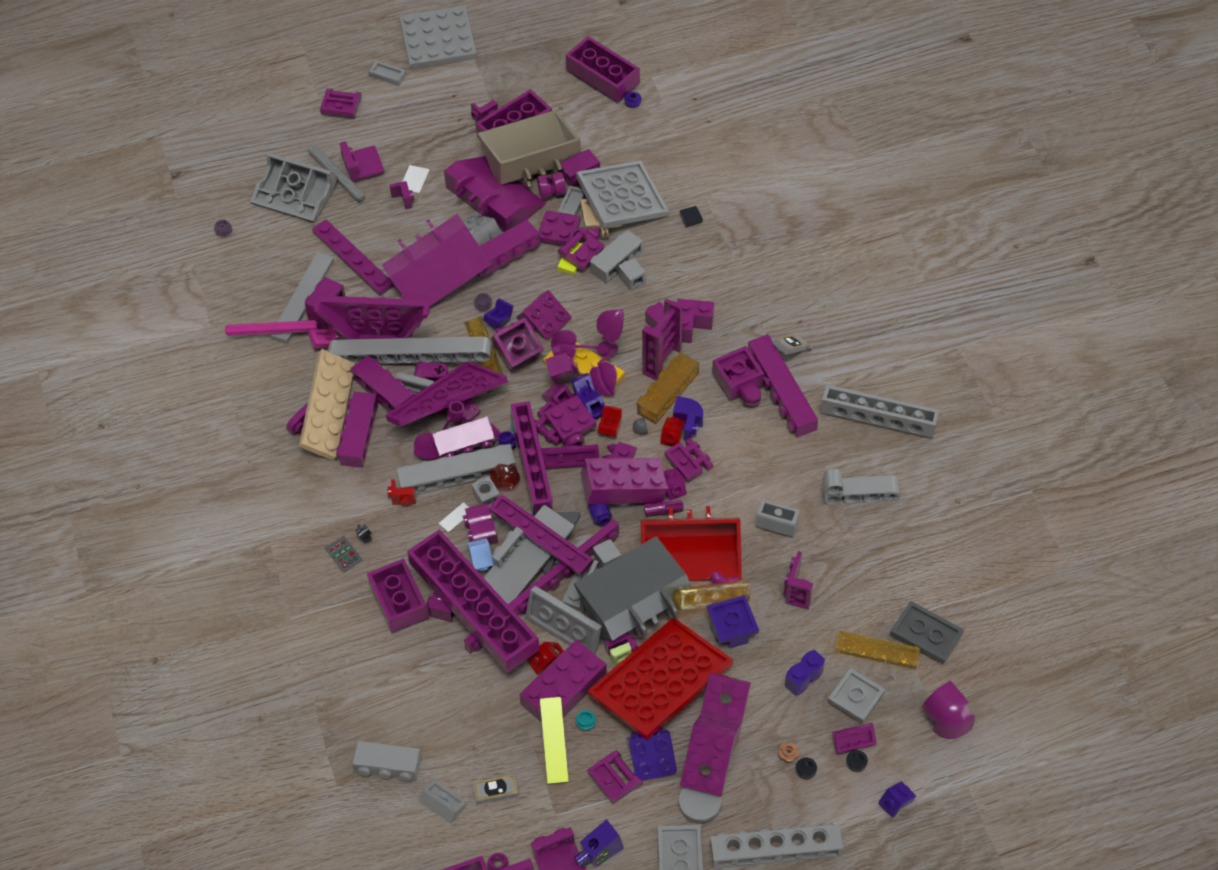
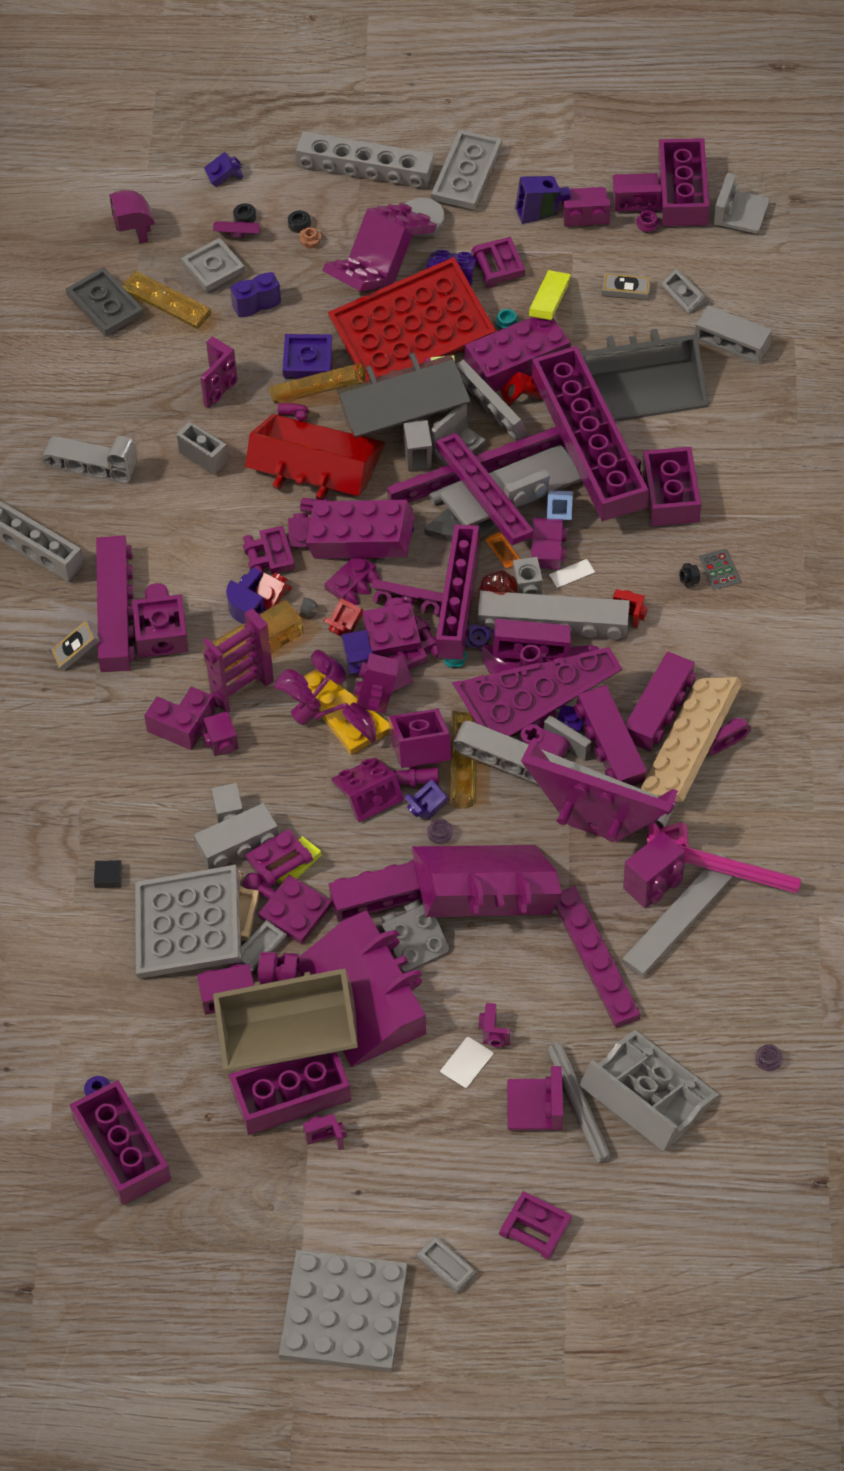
camera: 160 degrees left, 0 degrees up
(454, 696) = (649, 376): none -> dark grey piece

